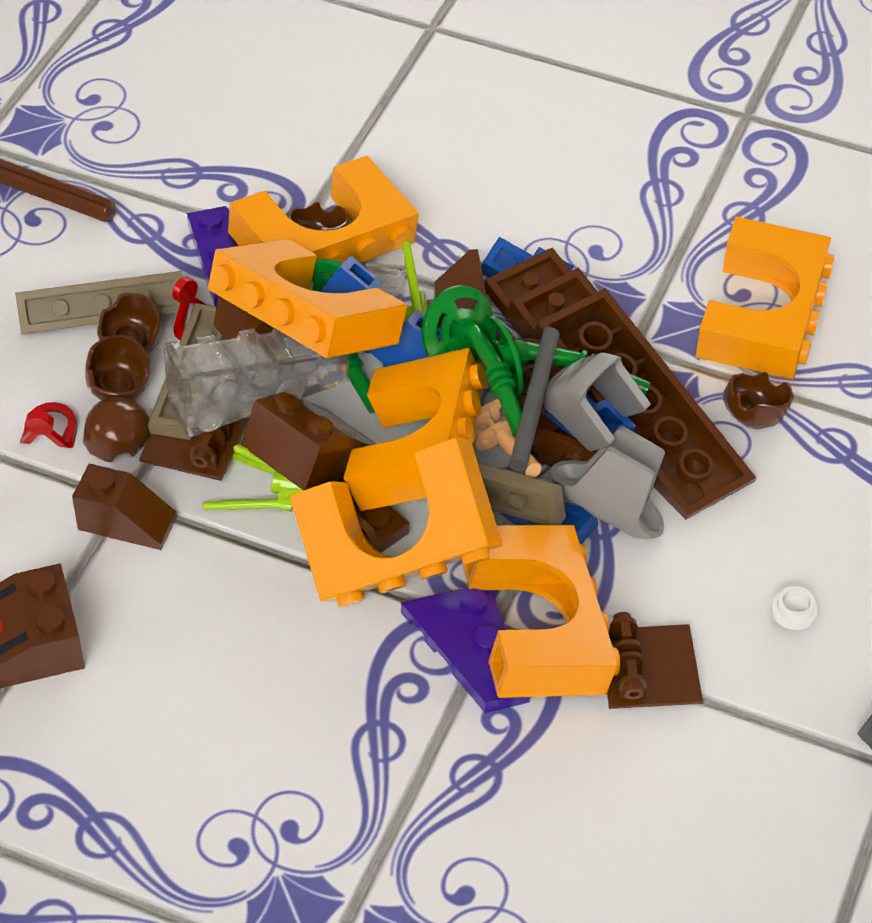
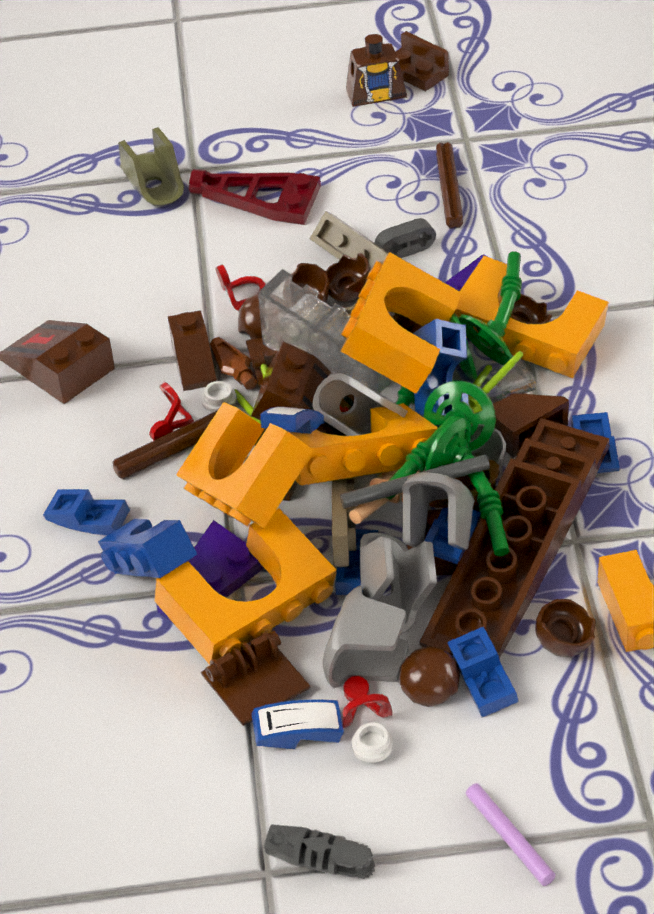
camera: 65 degrees right, 5 degrees down
(107, 254) = (407, 238): none -> dark grey beam
(172, 484) = (233, 362): none -> dark orange piece
(201, 546) = (168, 425): none -> red piece
(211, 519) = (217, 393): none -> white plate
(247, 587) = (161, 447): none -> reddish brown axle
(295, 714) = (82, 513): none -> blue slope
(309, 209) = (490, 334): none -> green dish
(354, 406) = (357, 419): none -> light grey piece
(382, 447) = (292, 419): none -> blue slope
(468, 651) = (147, 549): none -> blue arch
(670, 546) = (365, 641): none -> light grey piece
(715, 593) = (357, 692): none -> red piece
(733, 655) = (289, 721): none -> slope
(740, 526) = (429, 676): none -> reddish brown hair
(761, 486) = (483, 672): none -> blue slope

